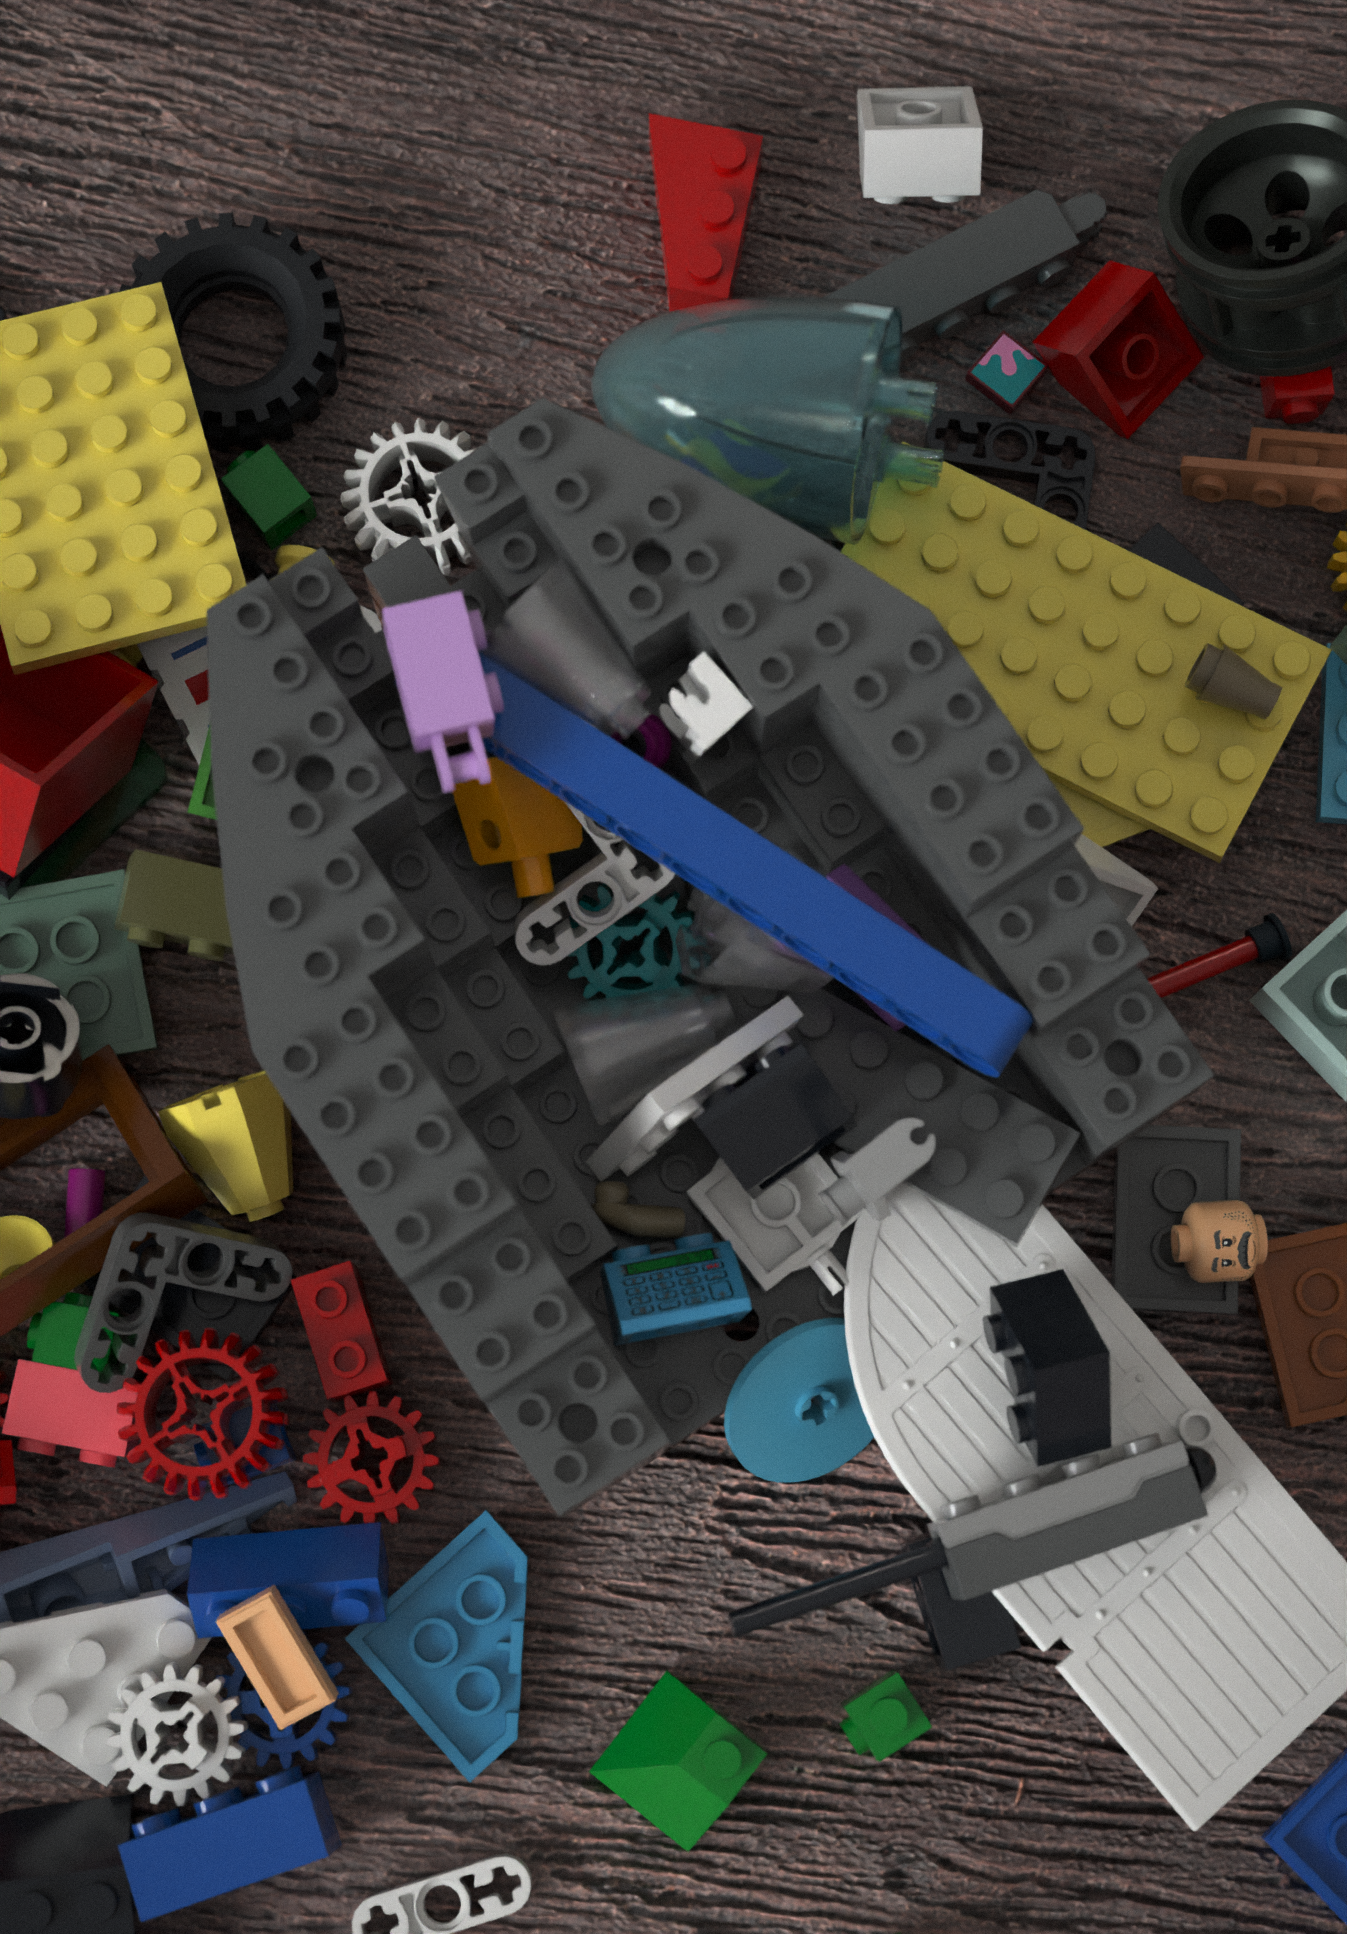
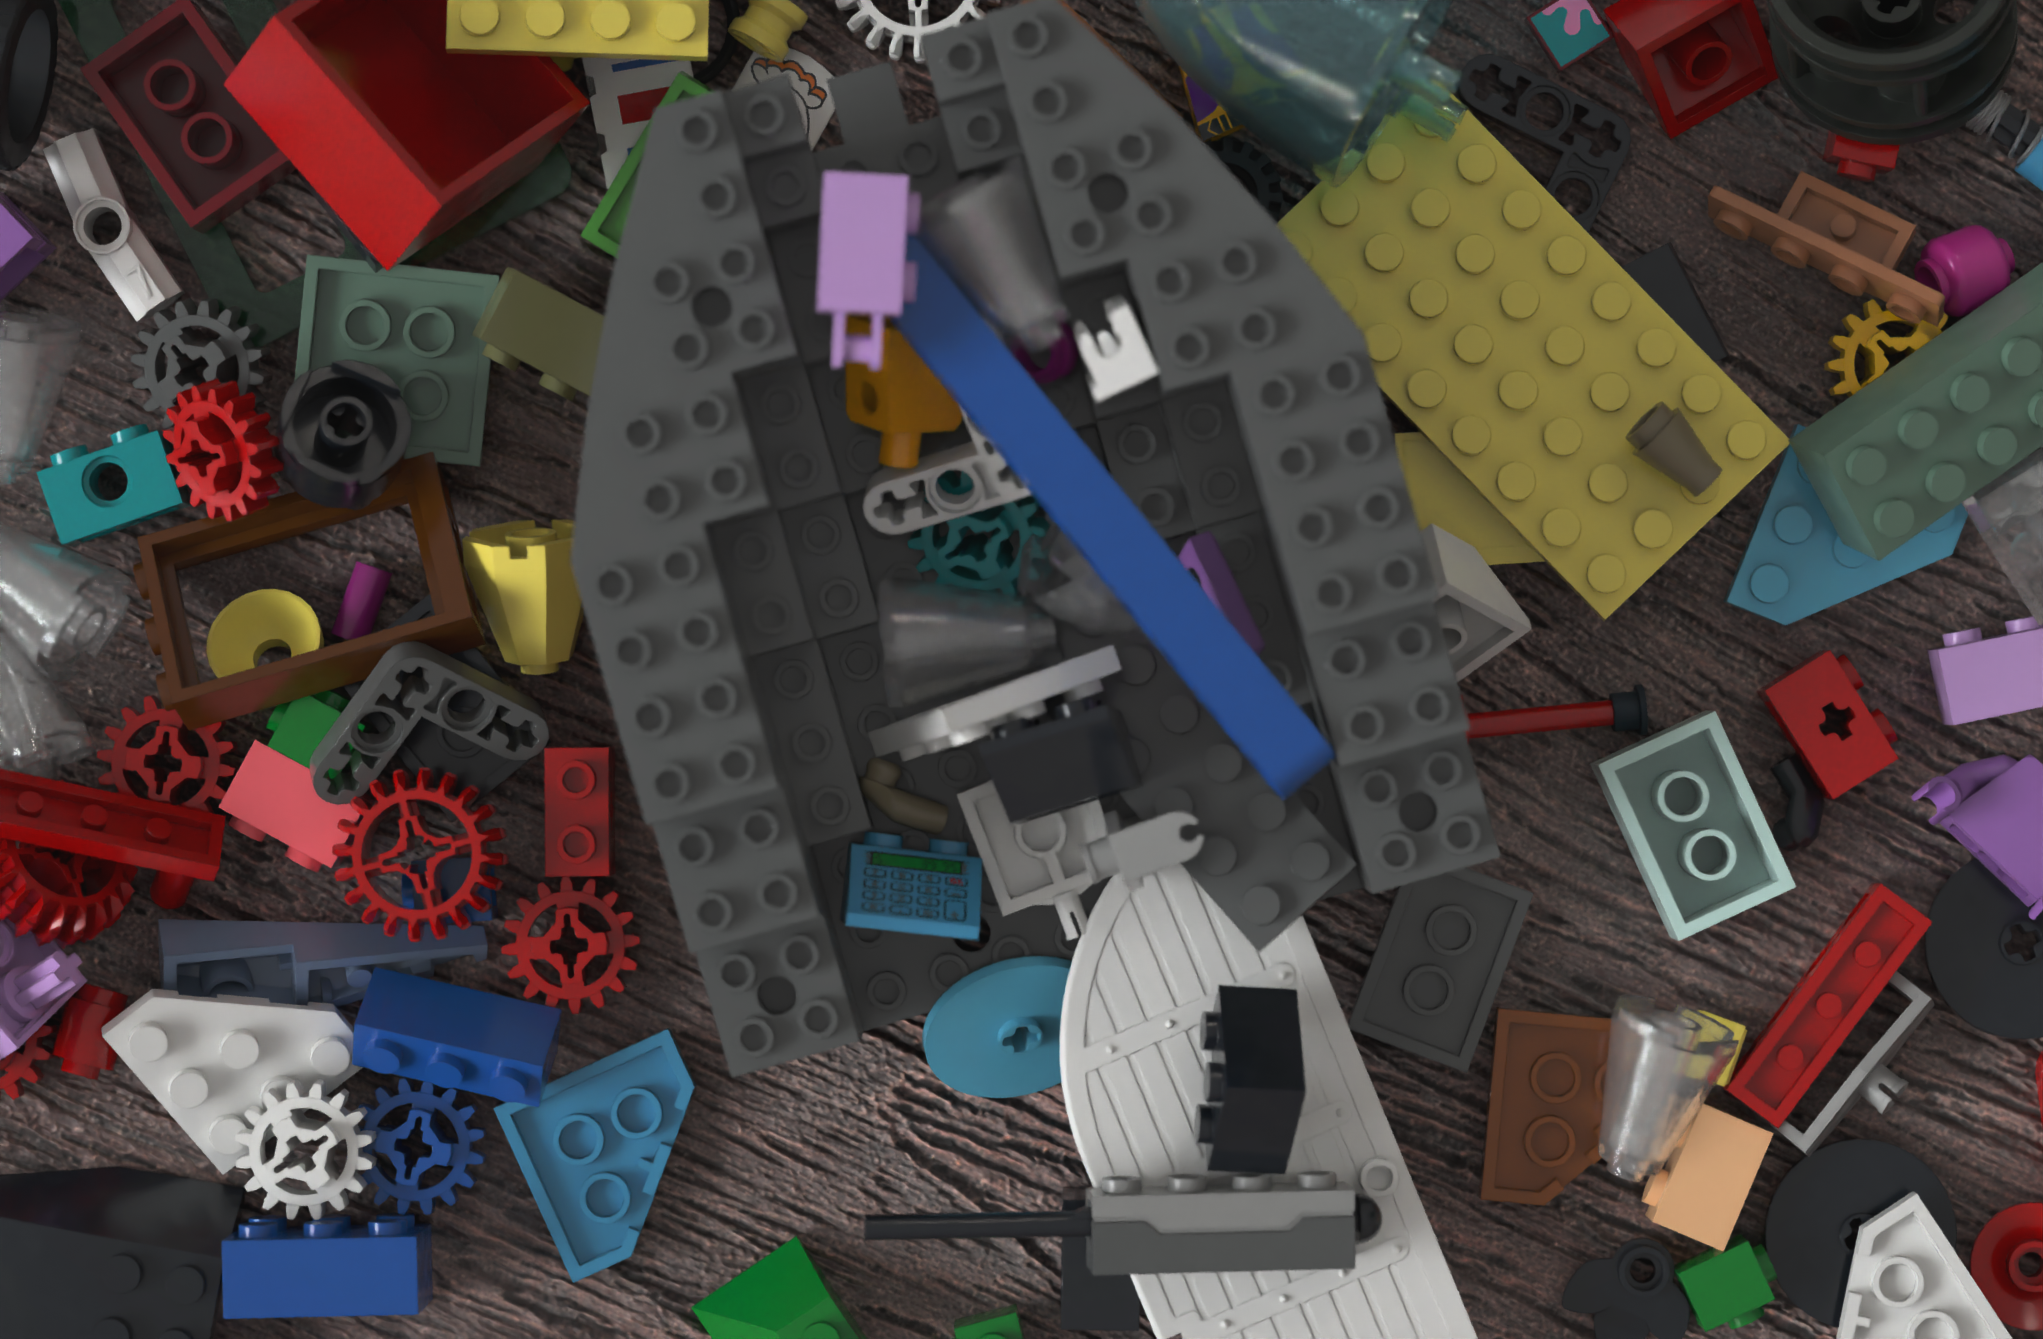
camera: 20 degrees right, 10 degrees up
(277, 1657) = (423, 1110): light nougat tile -> none
(1219, 1241) = (1469, 1000): light nougat head -> none

